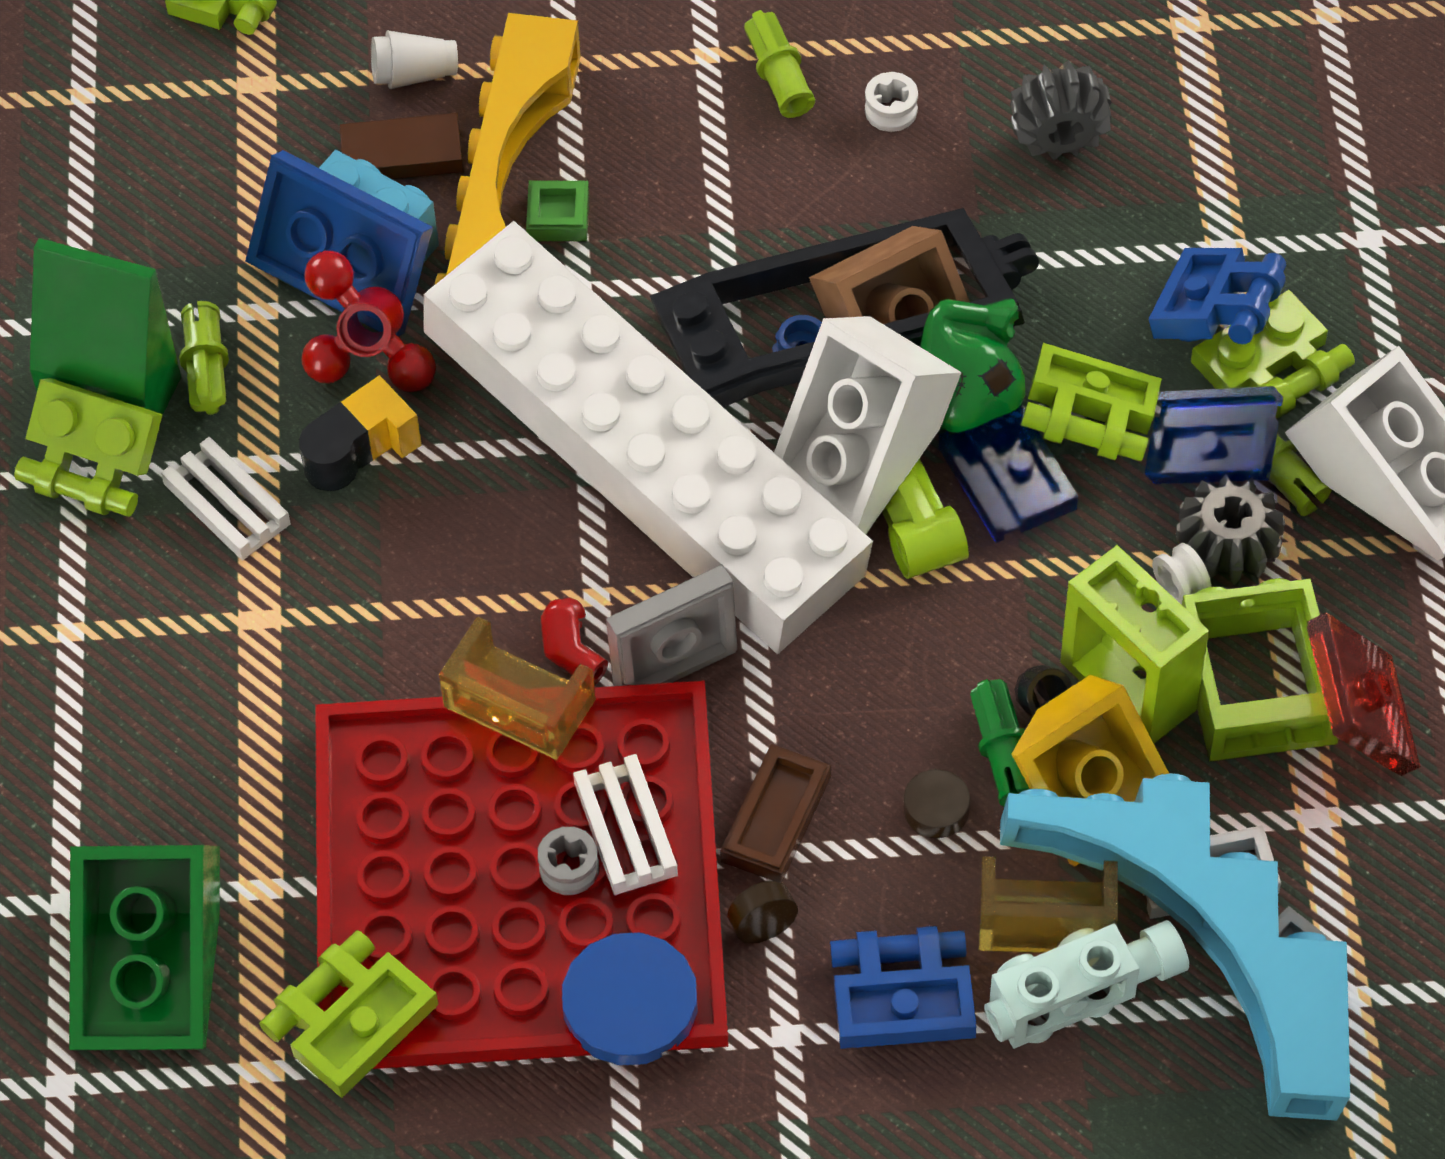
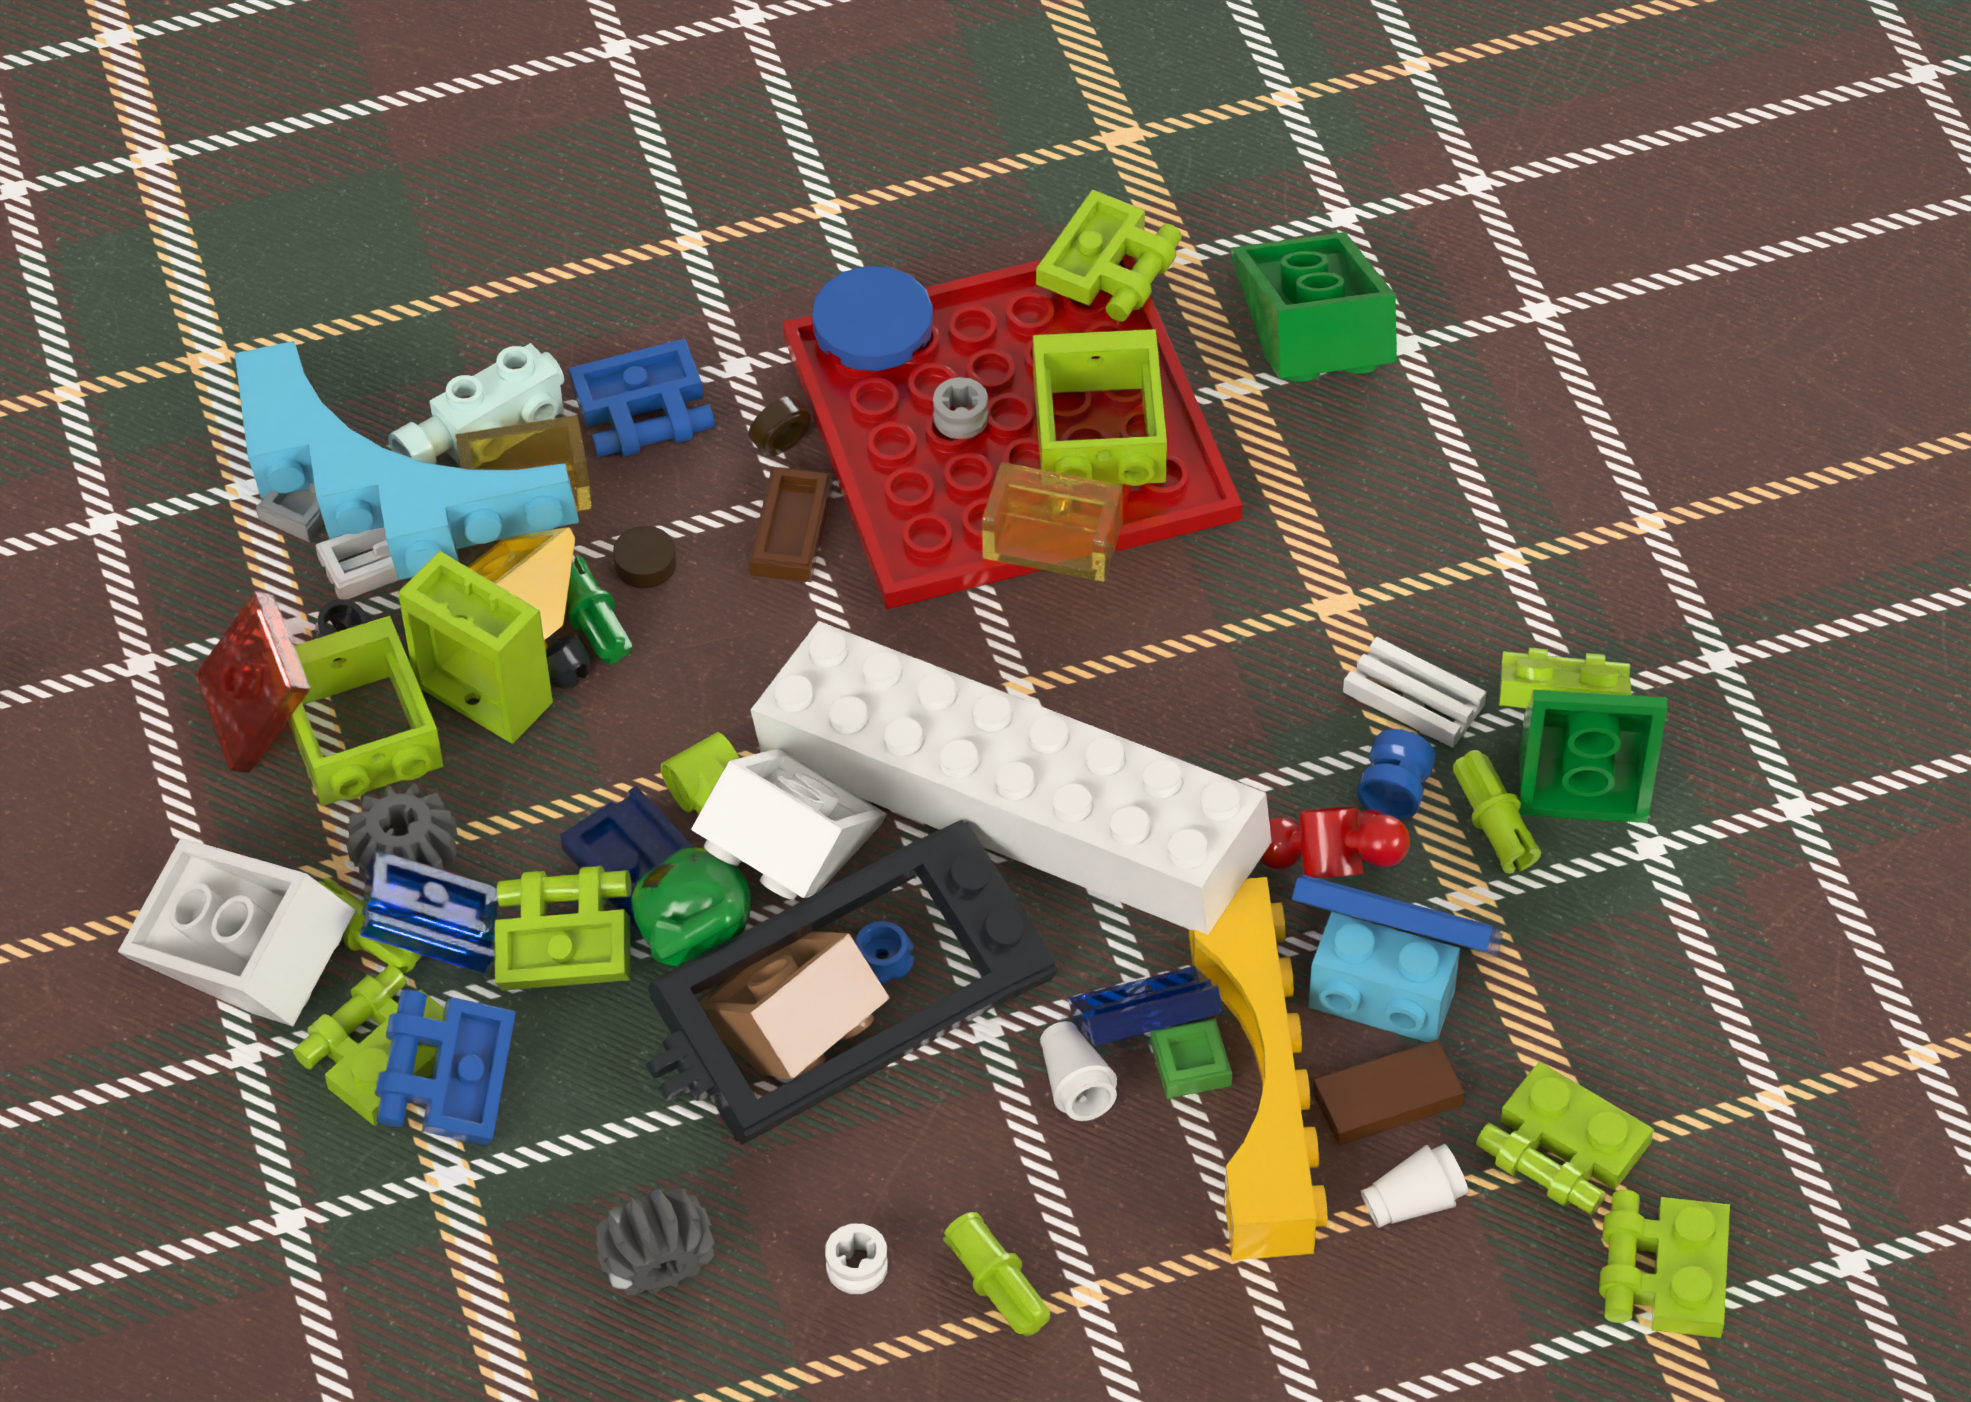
camera: 165 degrees right, 5 degrees down
(259, 95) = (1575, 1126): none -> lime plate
(280, 403) = (1398, 764): none -> blue wheel
(357, 434) = (1308, 762): leg -> none
(417, 862) = (1125, 362): none -> lime window
(562, 638) = (1029, 617): red arm -> none
(591, 228) = (1145, 1005): none -> clear blue plate
(610, 779) = (897, 415): white tile -> none
(662, 202) = (1077, 1074): none -> white cone
(674, 631) = (926, 594): light grey plate -> none
(1182, 572) = (449, 783): white bush -> none
(1273, 766) = (342, 614): none -> black hinge

